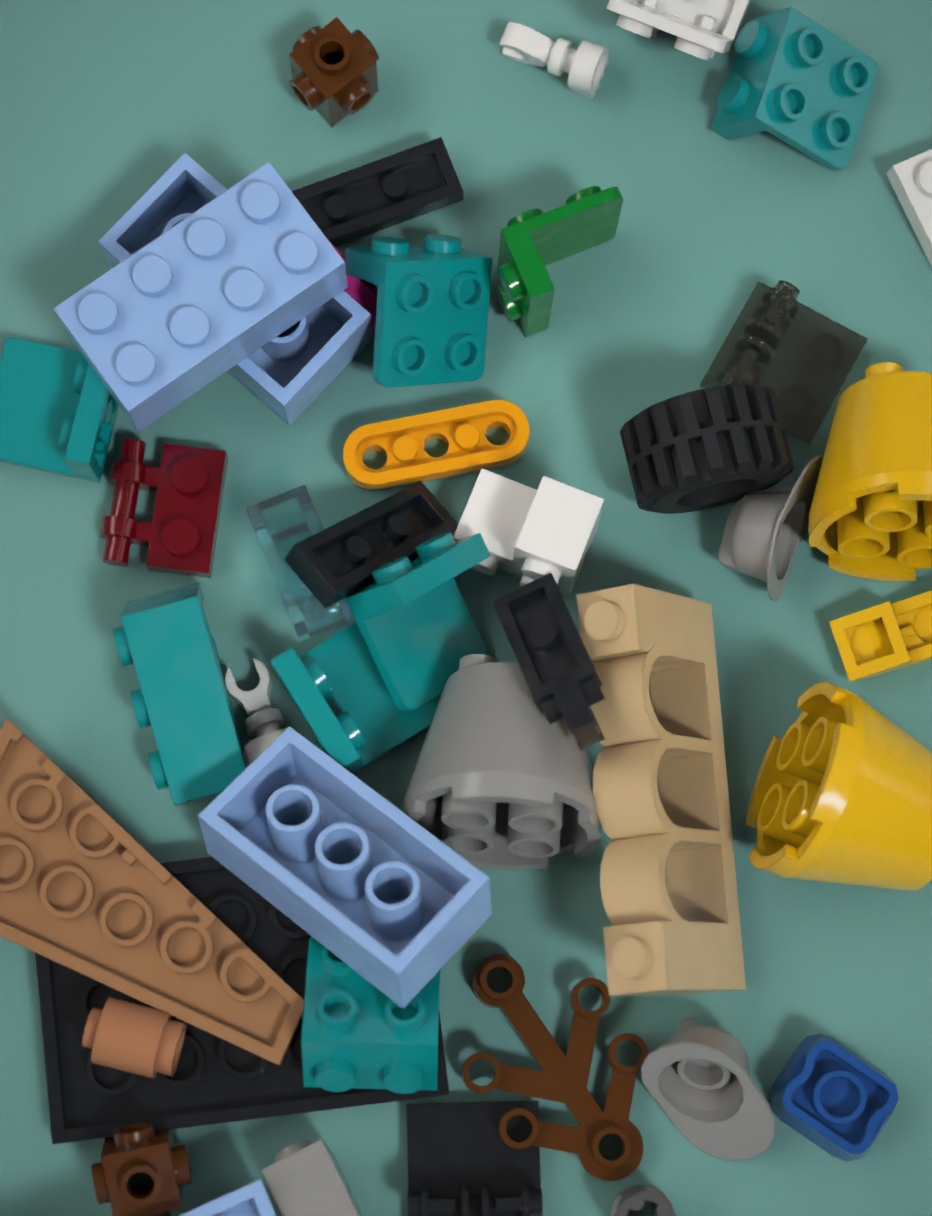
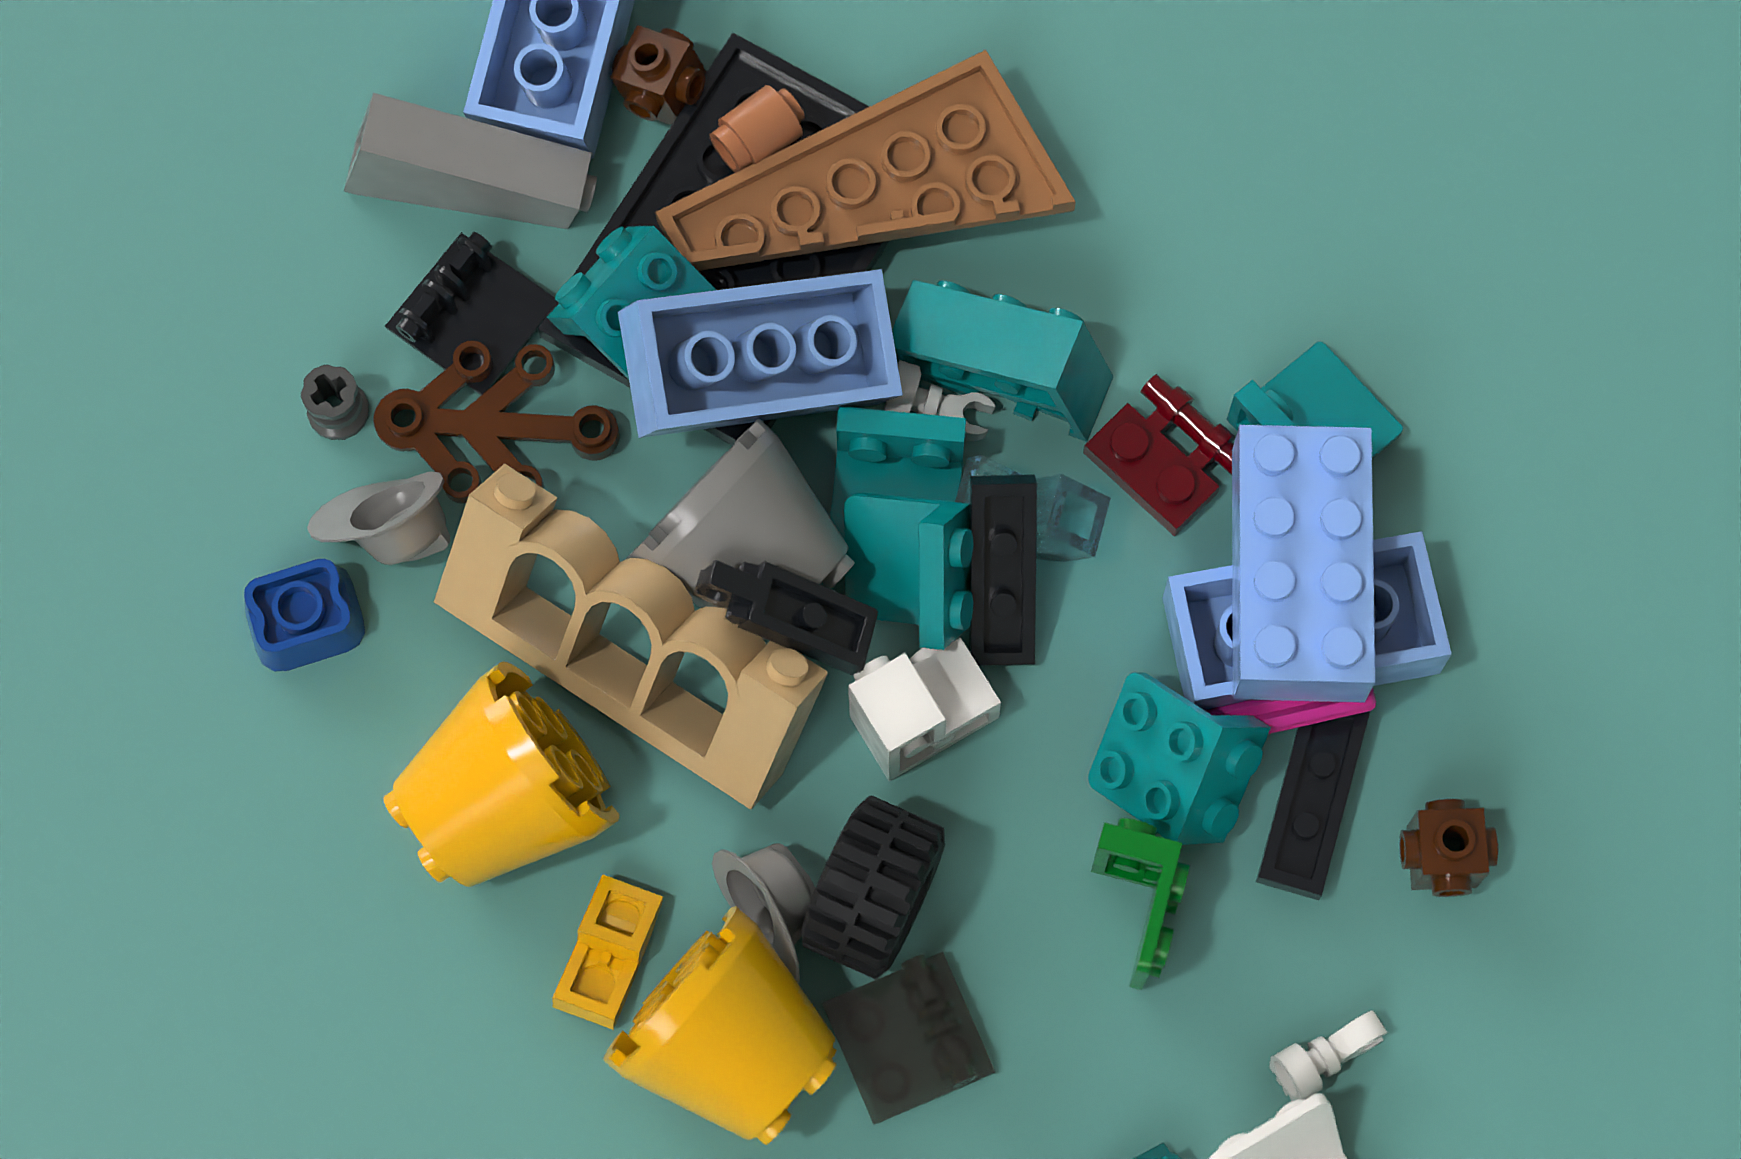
camera: 130 degrees right, 5 degrees down
(459, 427) = (1060, 670): light orange plate -> none

